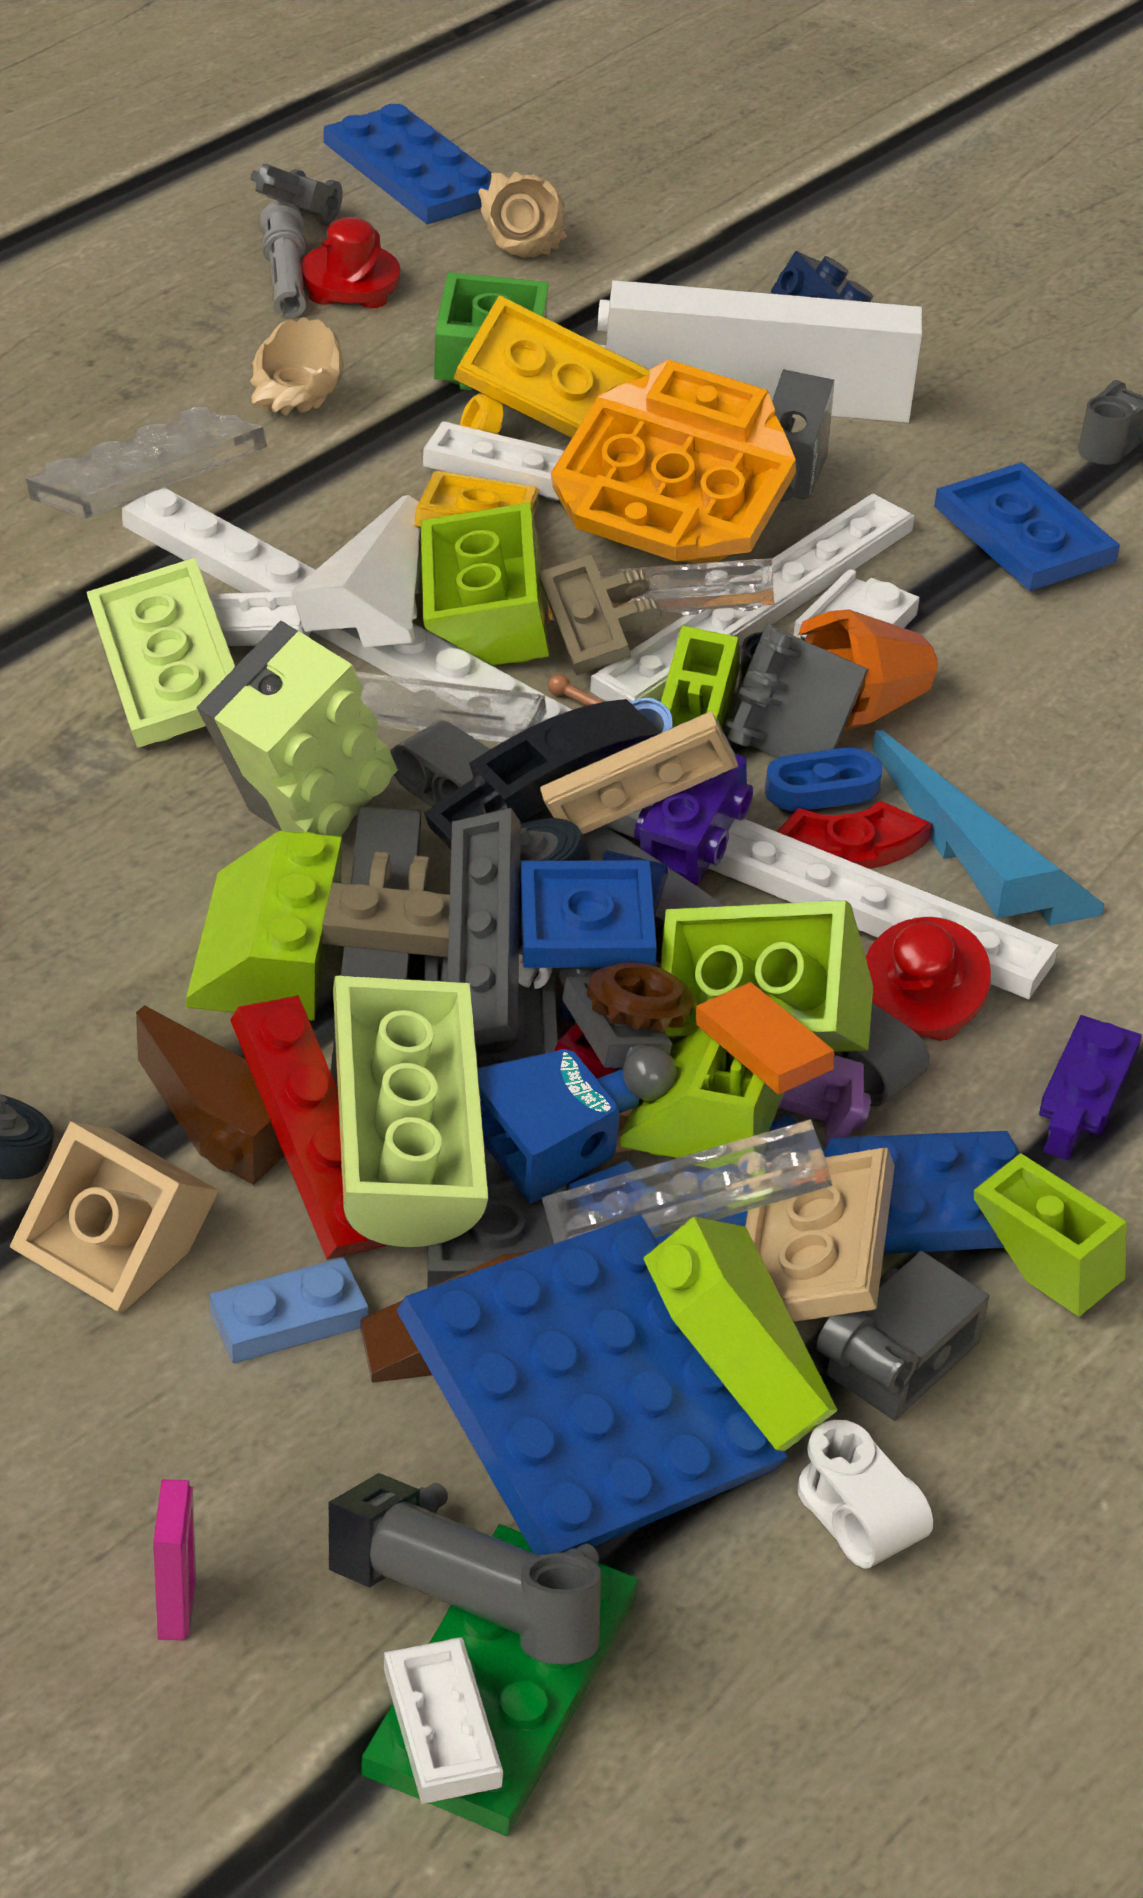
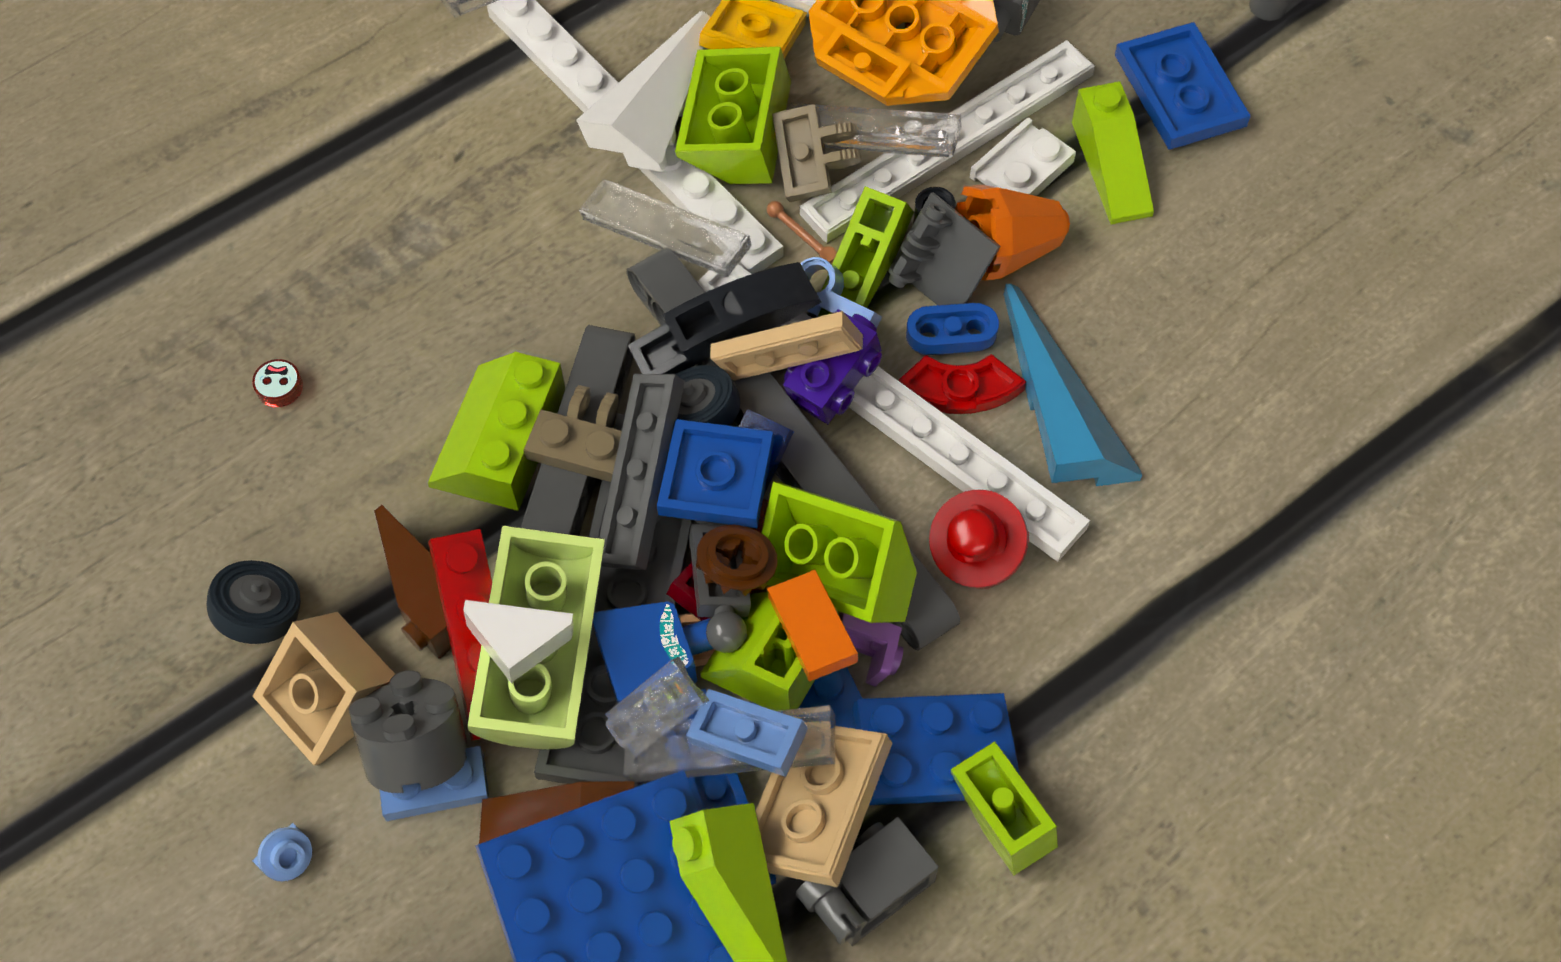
camera: 15 degrees right, 20 degrees up
(106, 1403) = (284, 853): none -> light blue plate
(162, 648) = (484, 154): yellowish green plate -> none
(251, 616) = (551, 125): white plate -> none
(256, 1232) = (409, 733): none -> dark grey brick
(298, 735) = (540, 274): yellowish green piece -> none
(390, 1075) = (517, 635): none -> white slope
(588, 1148) = (655, 708): none -> clear hips
(714, 1155) = (747, 732): none -> medium blue plate
(962, 589) = (1113, 151): none -> lime slope
(1087, 1082) = (1080, 650): dark purple hinge -> none

